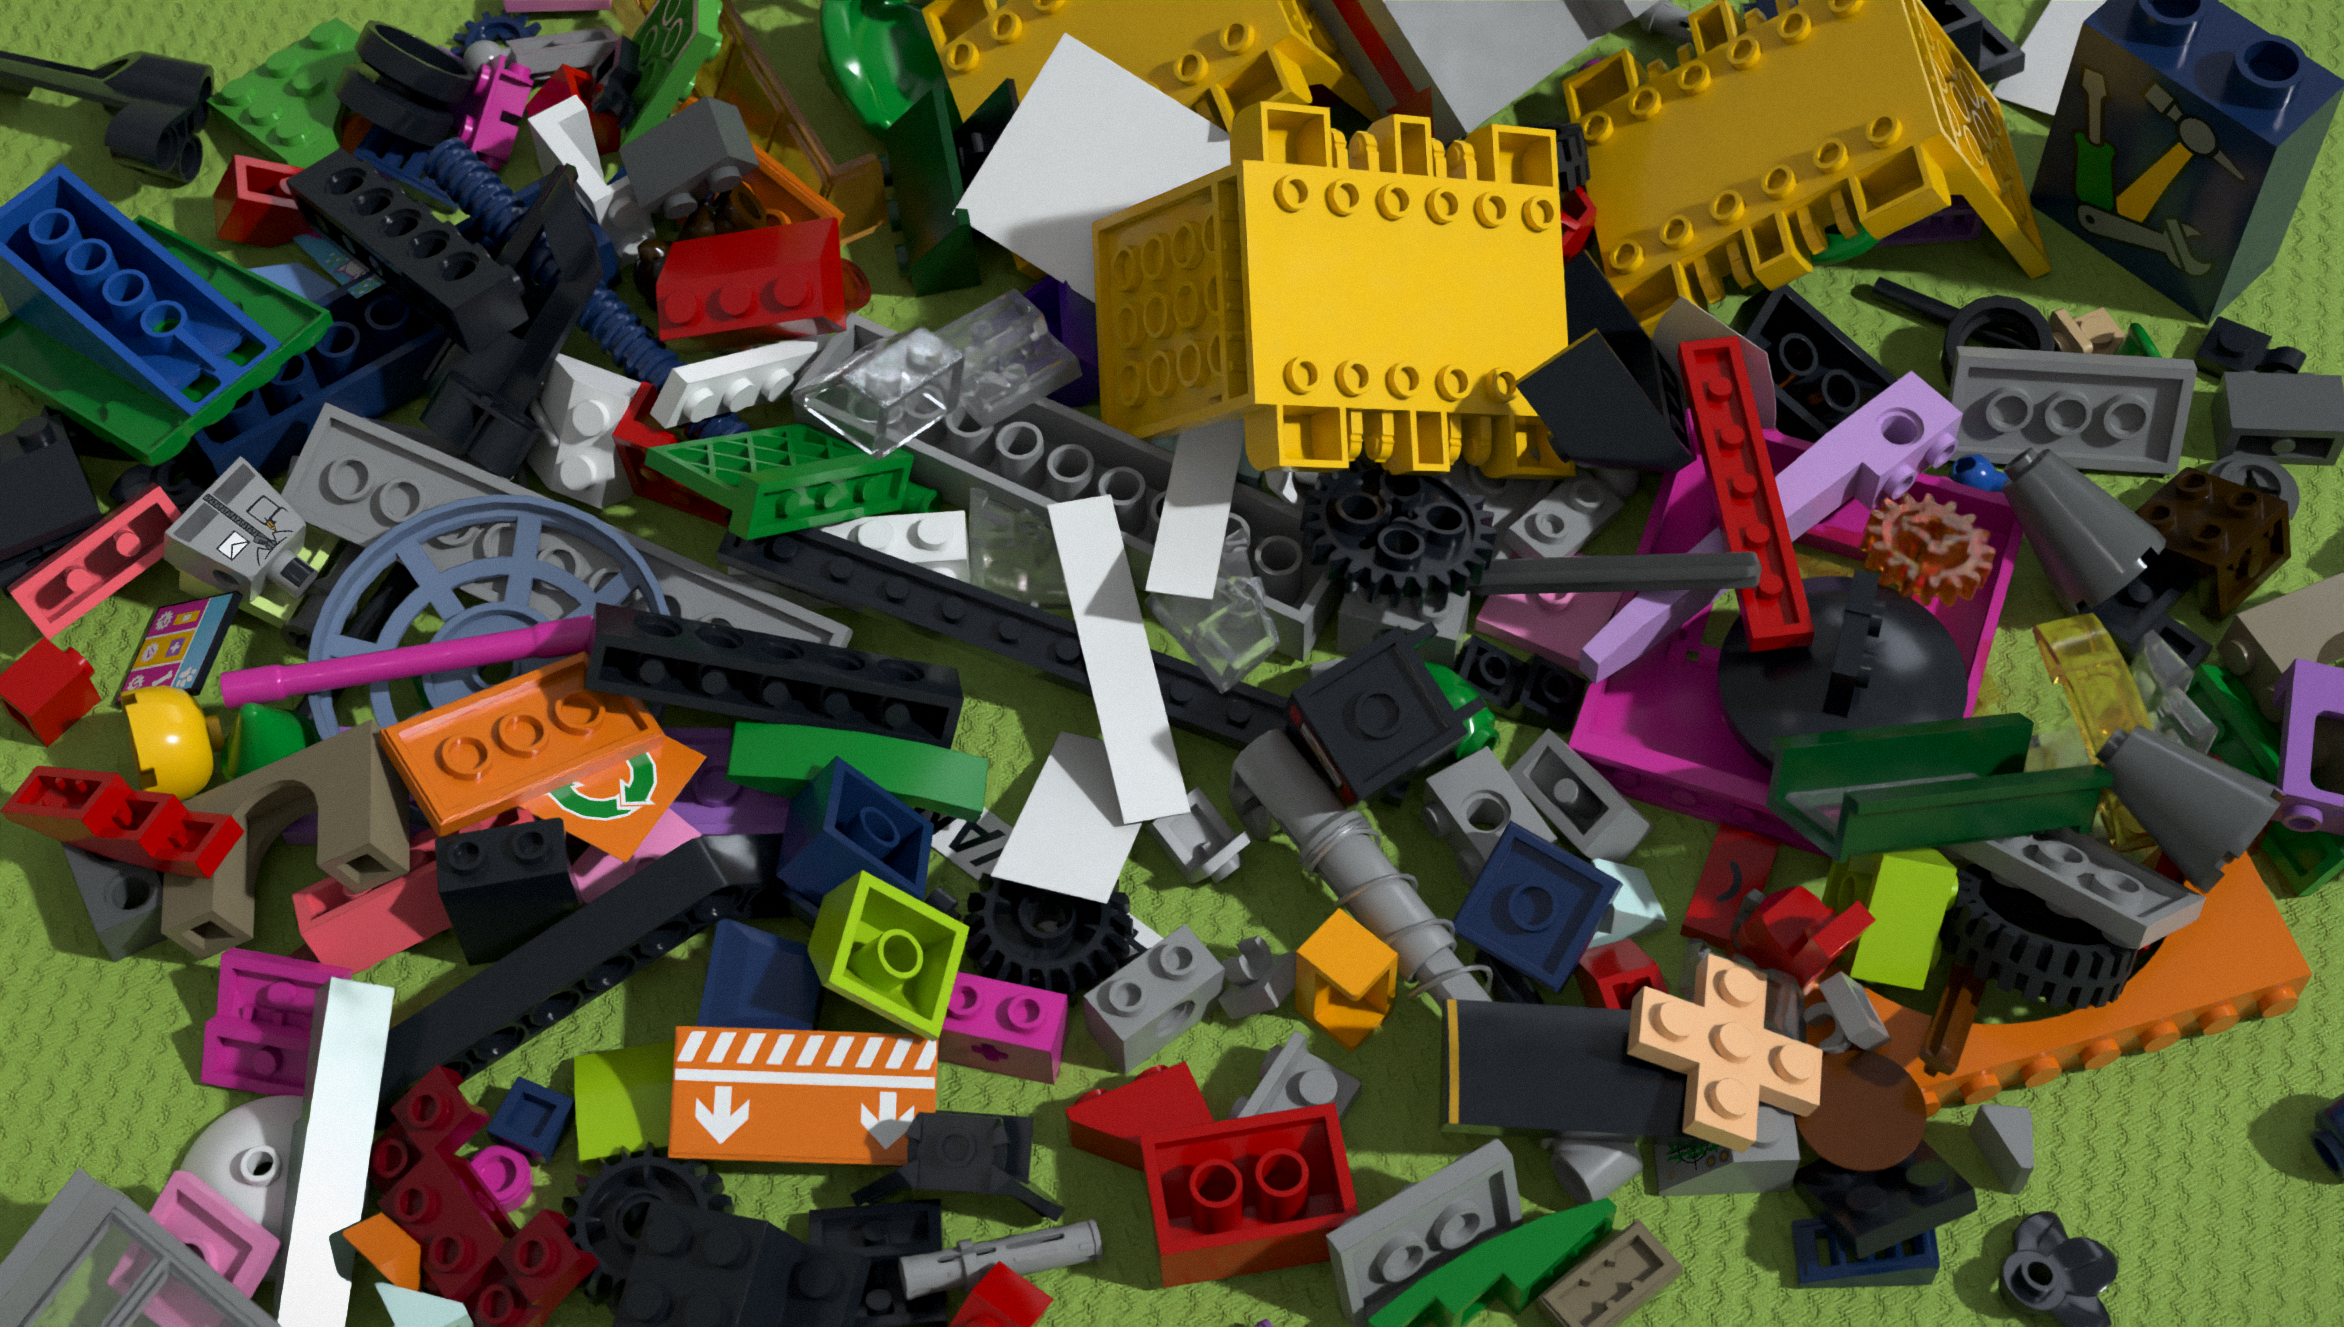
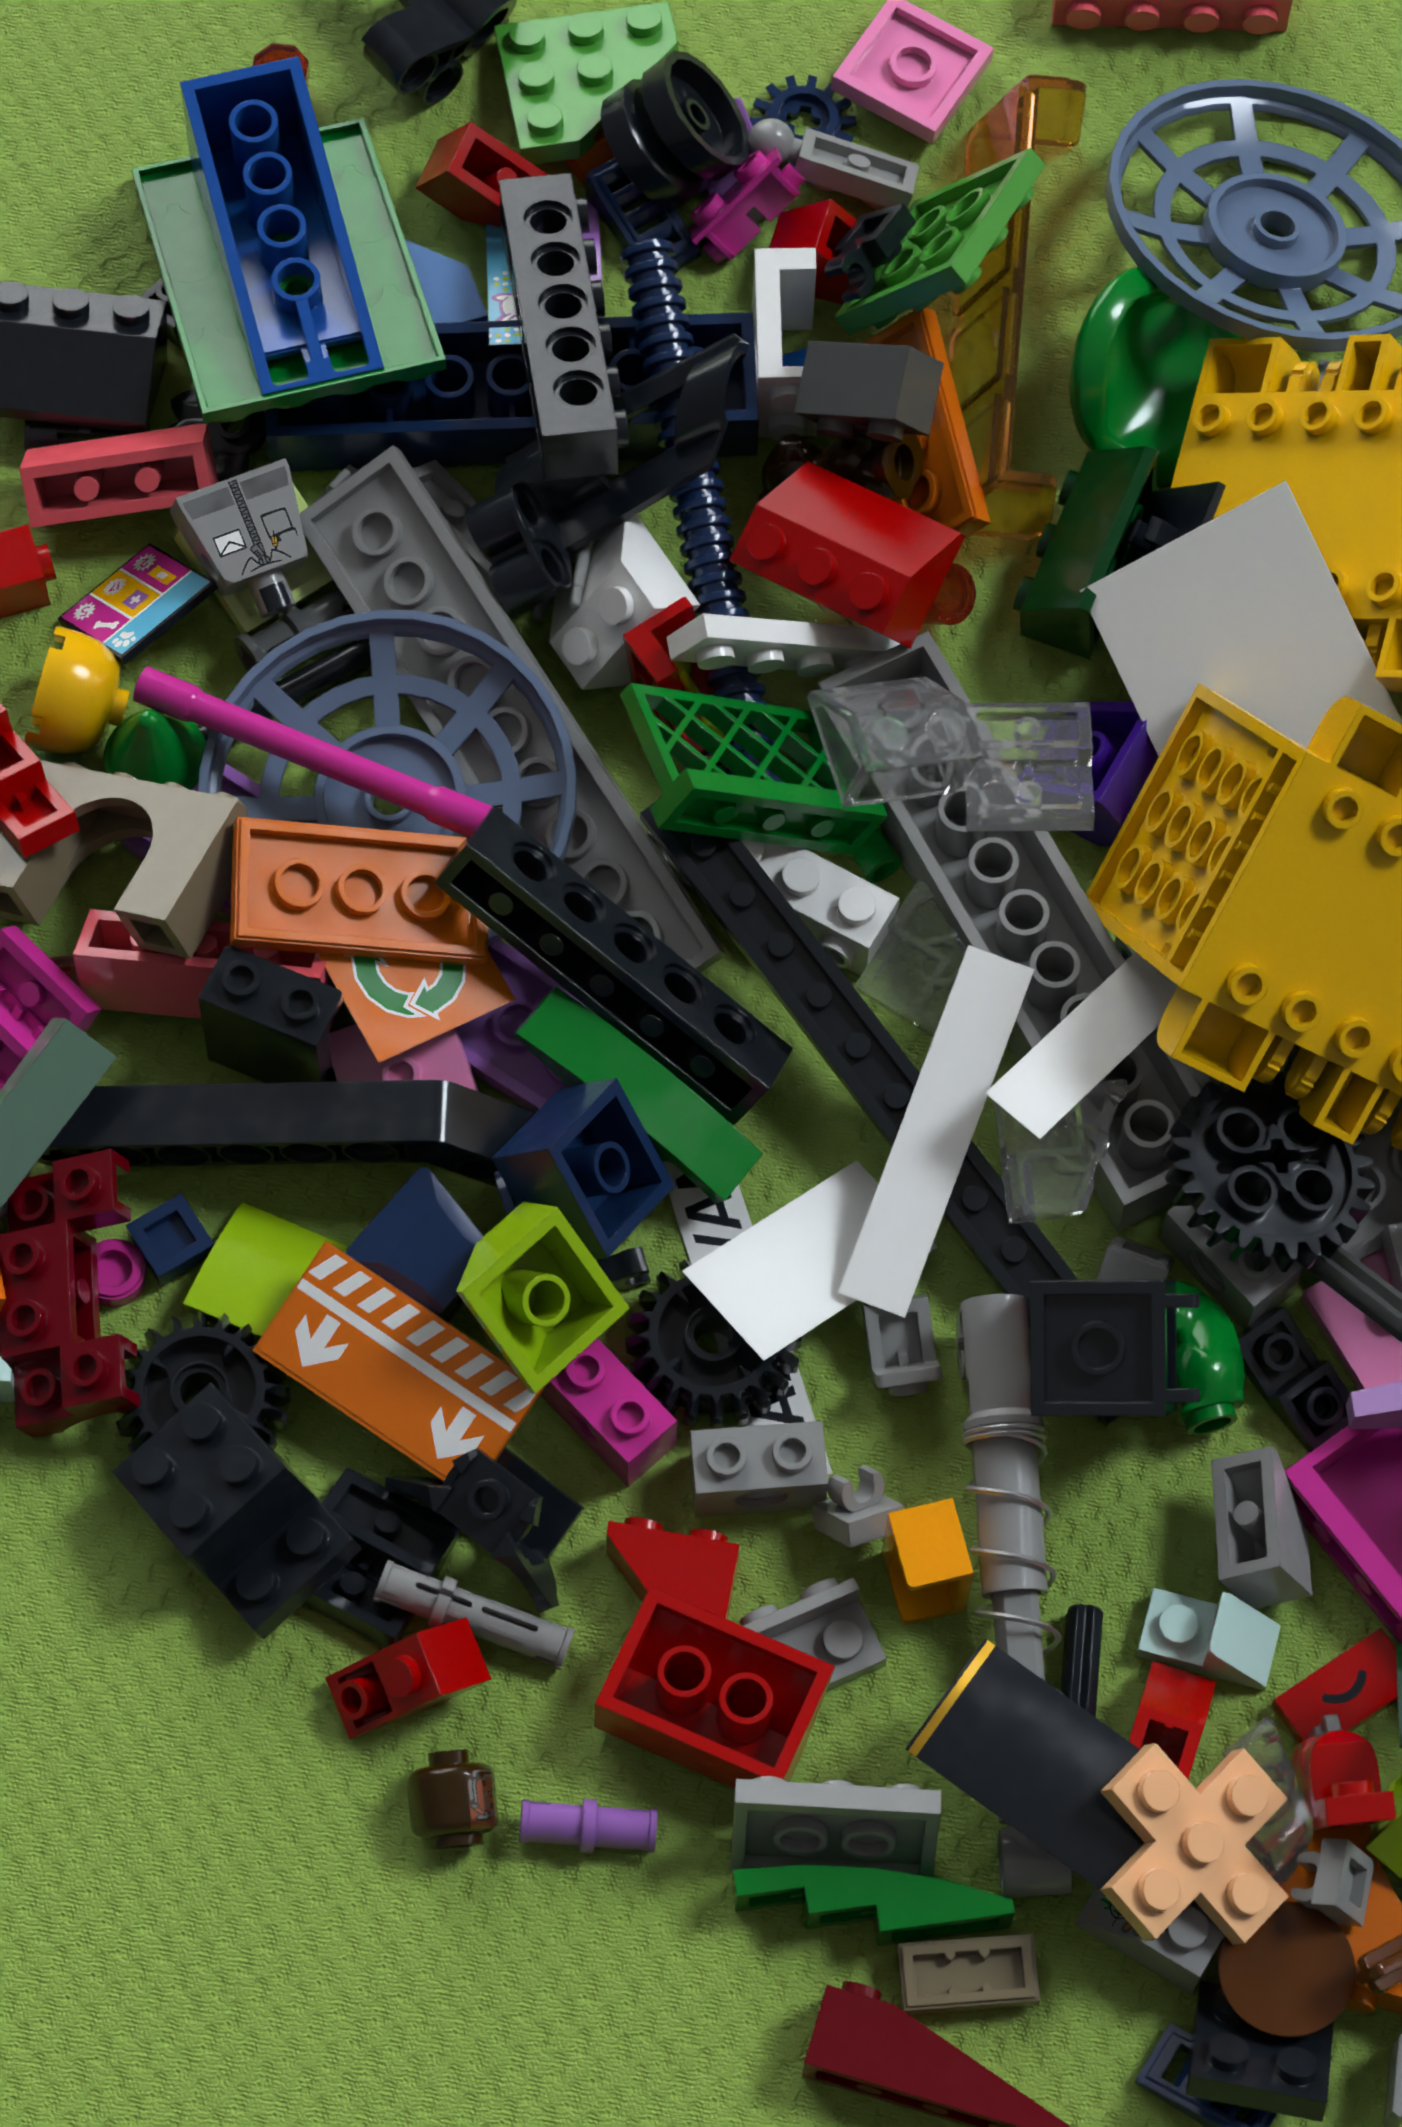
camera: 30 degrees right, 10 degrees up
(1474, 793) = (1173, 1457): light grey brick -> none
(1535, 907) = (1141, 1602): dark blue plate -> none

